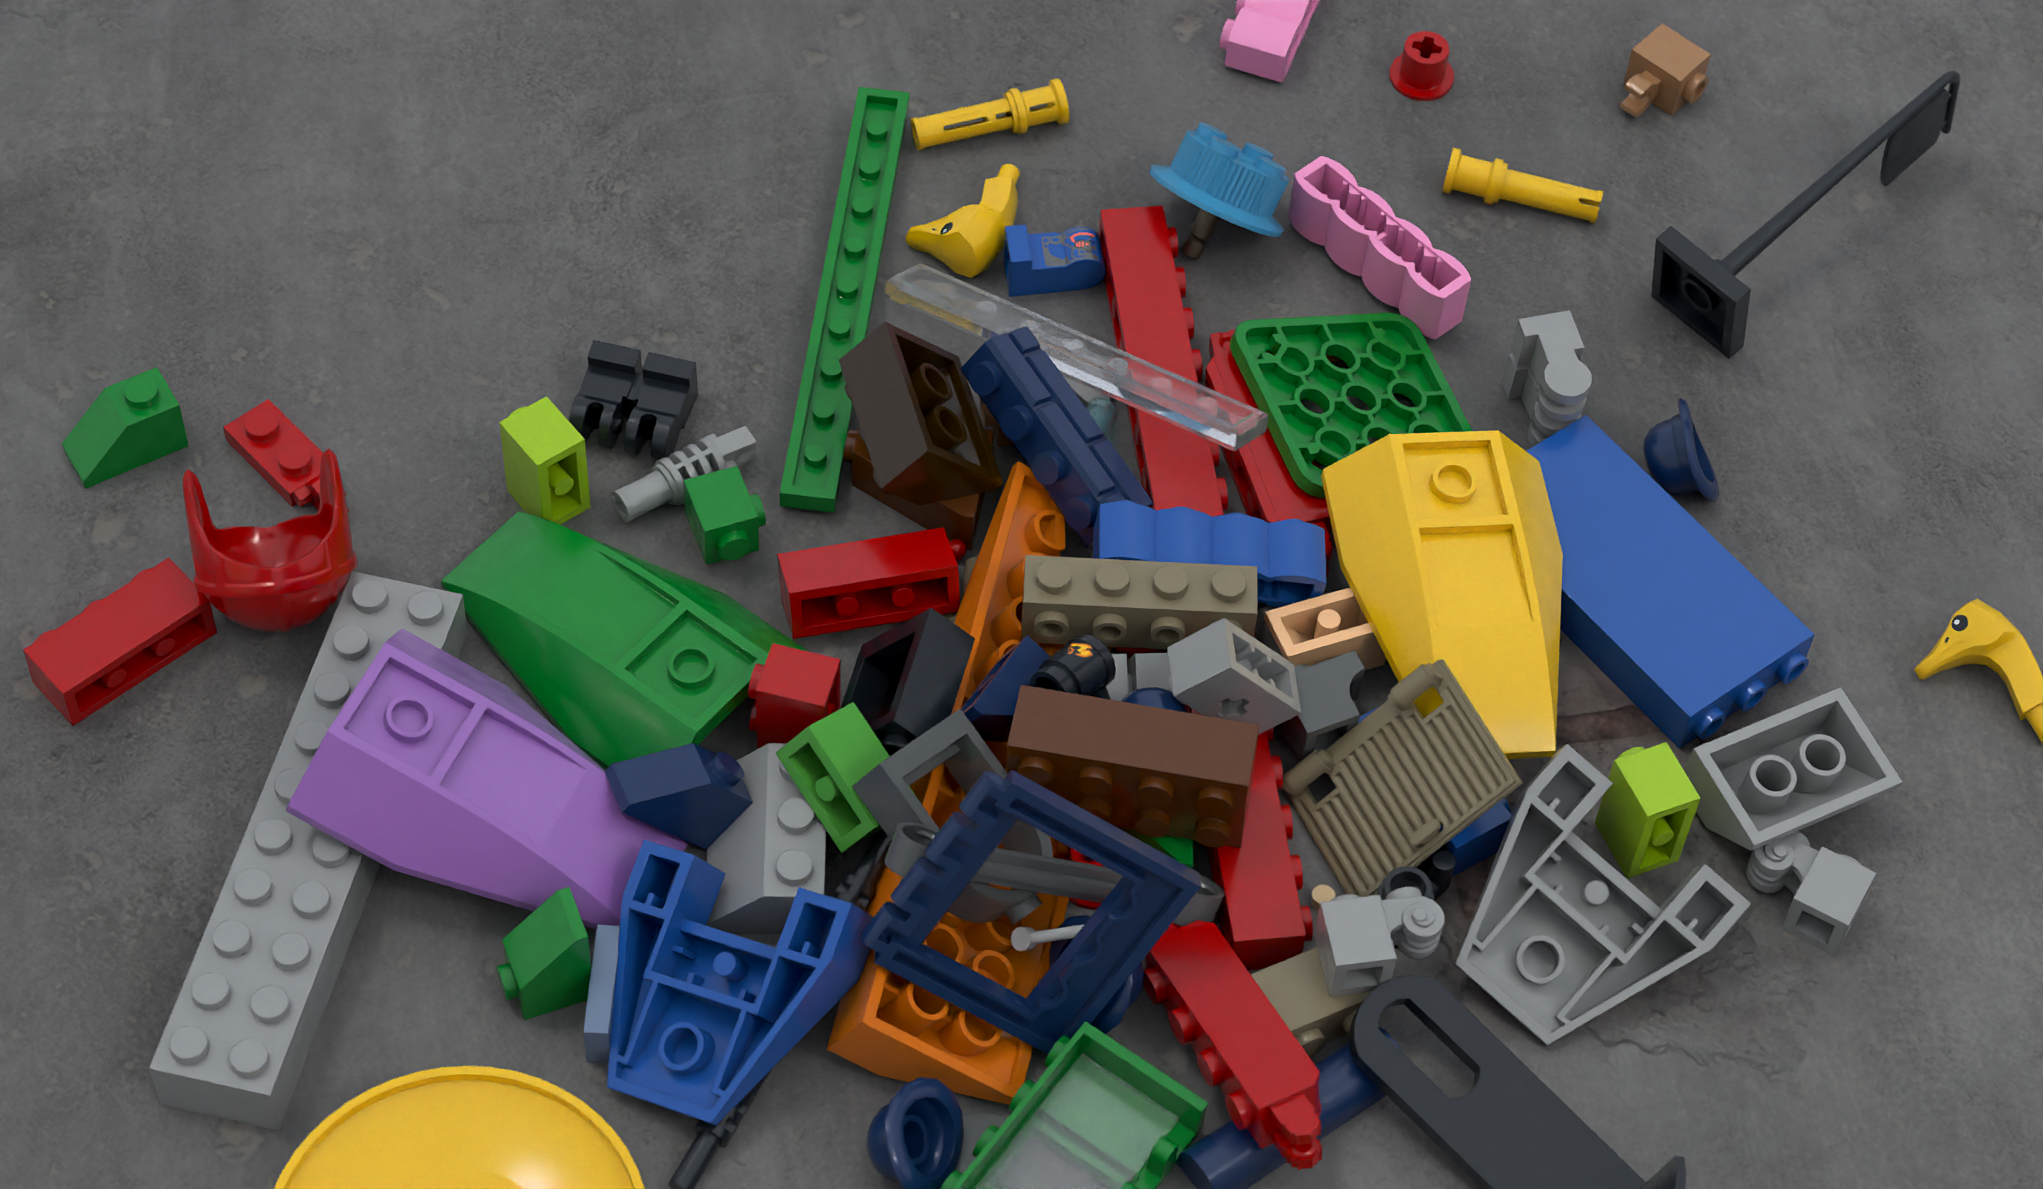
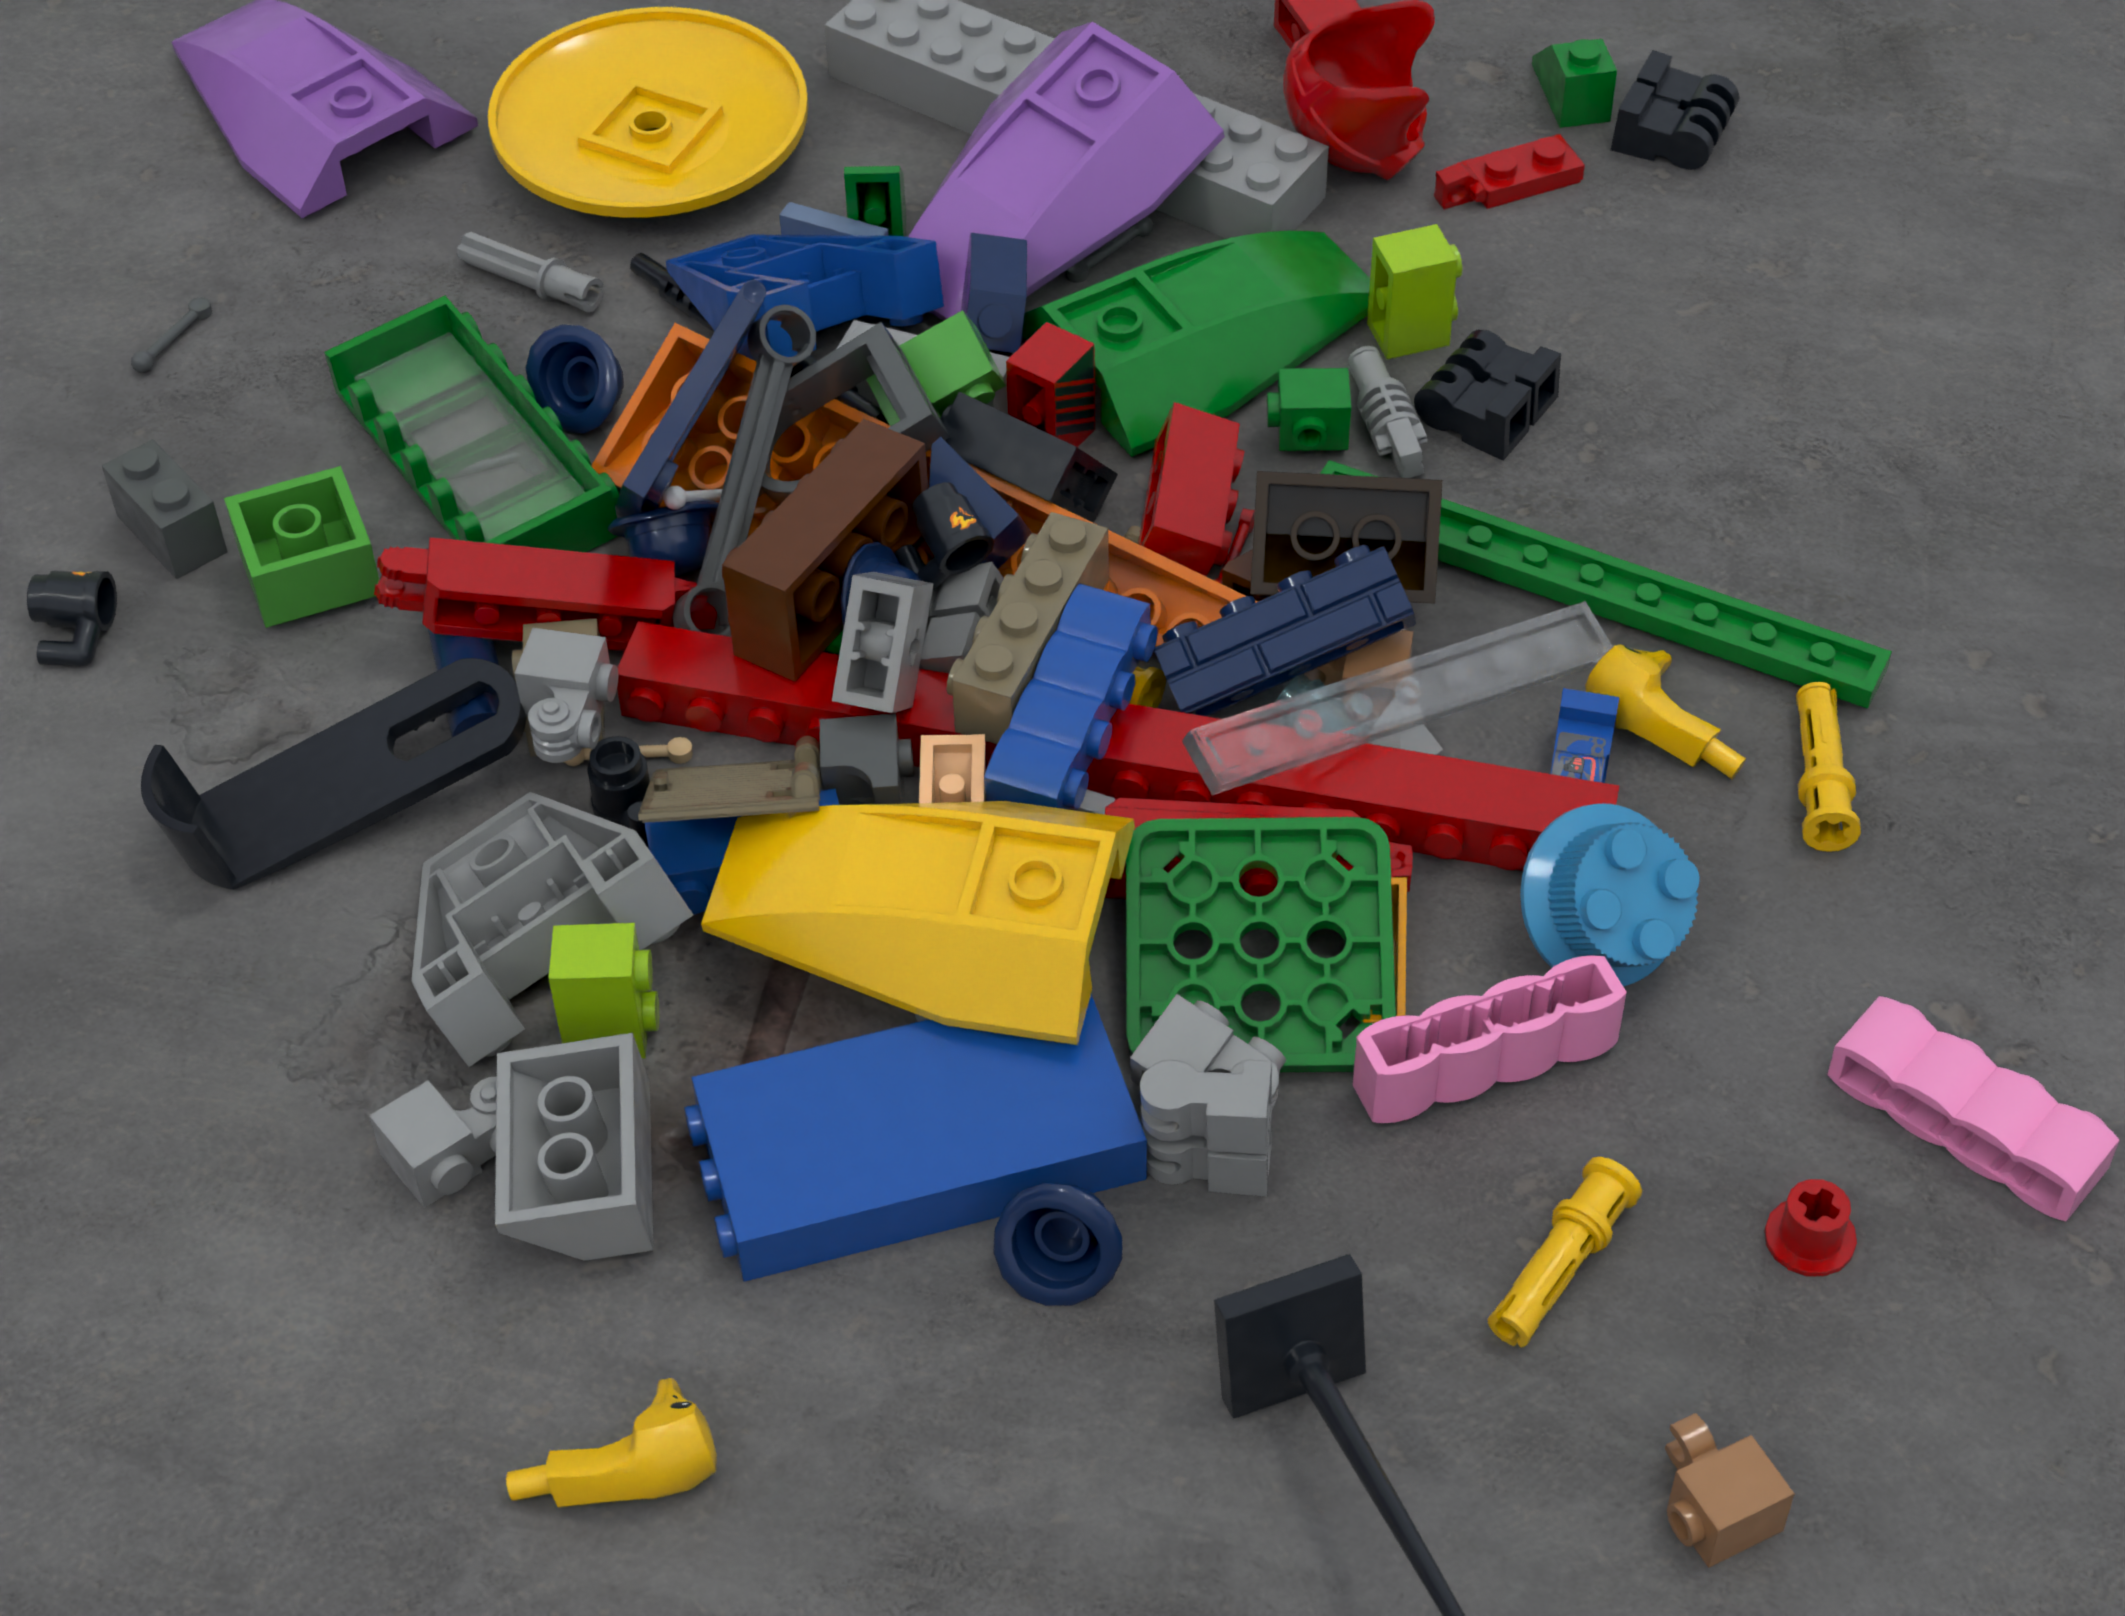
camera: 115 degrees right, 5 degrees down
(185, 357) = (1673, 114): none -> black legs
(1486, 400) = (1204, 1041): none -> light grey brick

